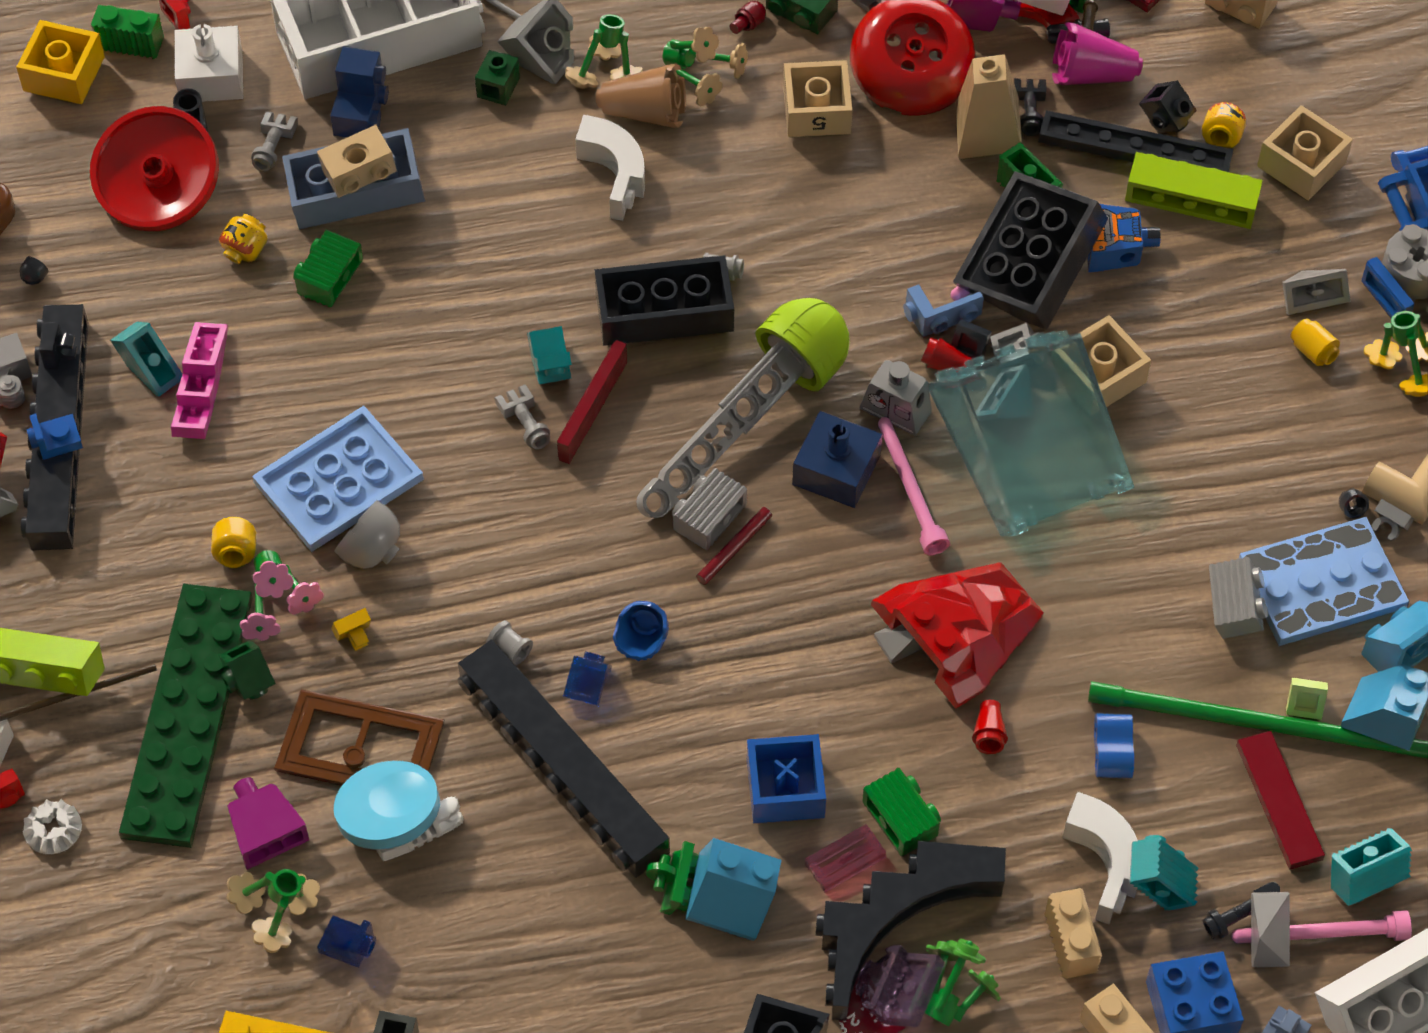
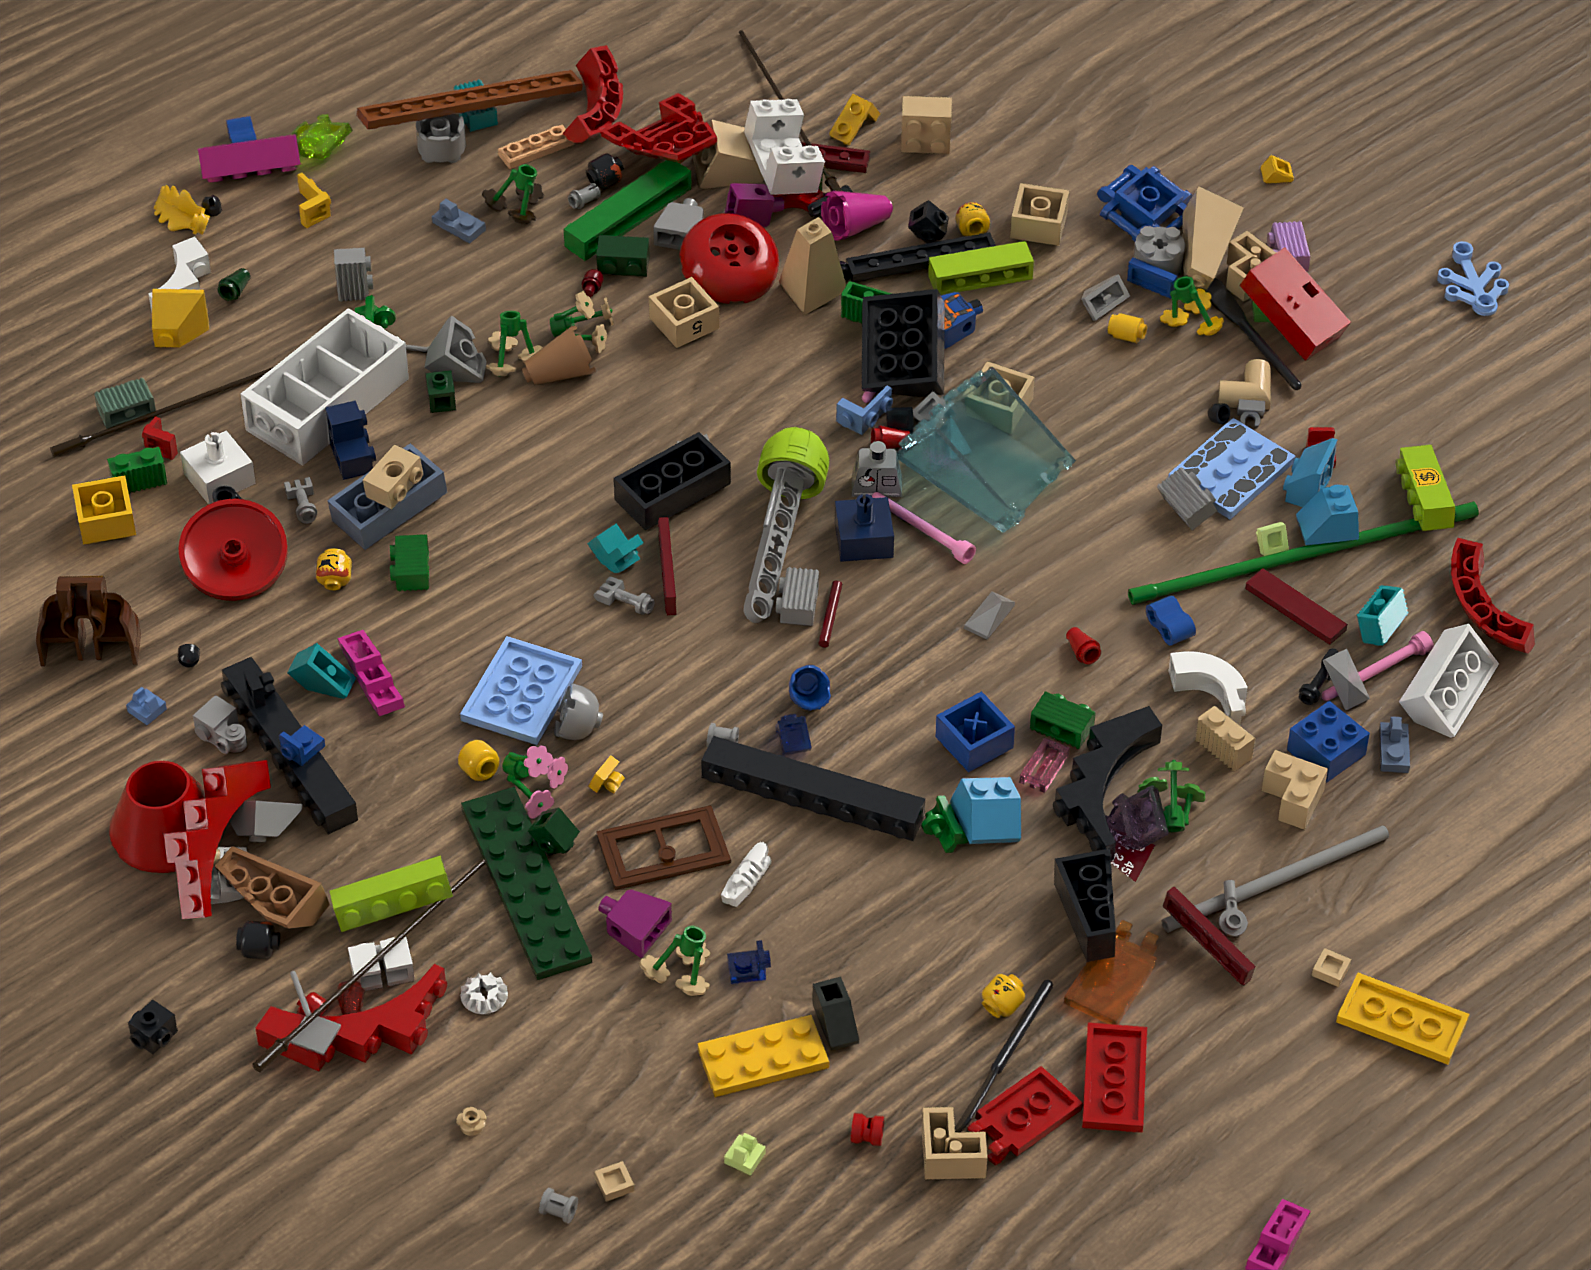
camera: 30 degrees left, 10 degrees down
(386, 805) = (717, 867): medium azure piece -> none
(615, 148) = (567, 404): white arch -> none
(963, 624) = (1022, 585): red wedge -> none
(1163, 873) = (1259, 675): teal brick -> none

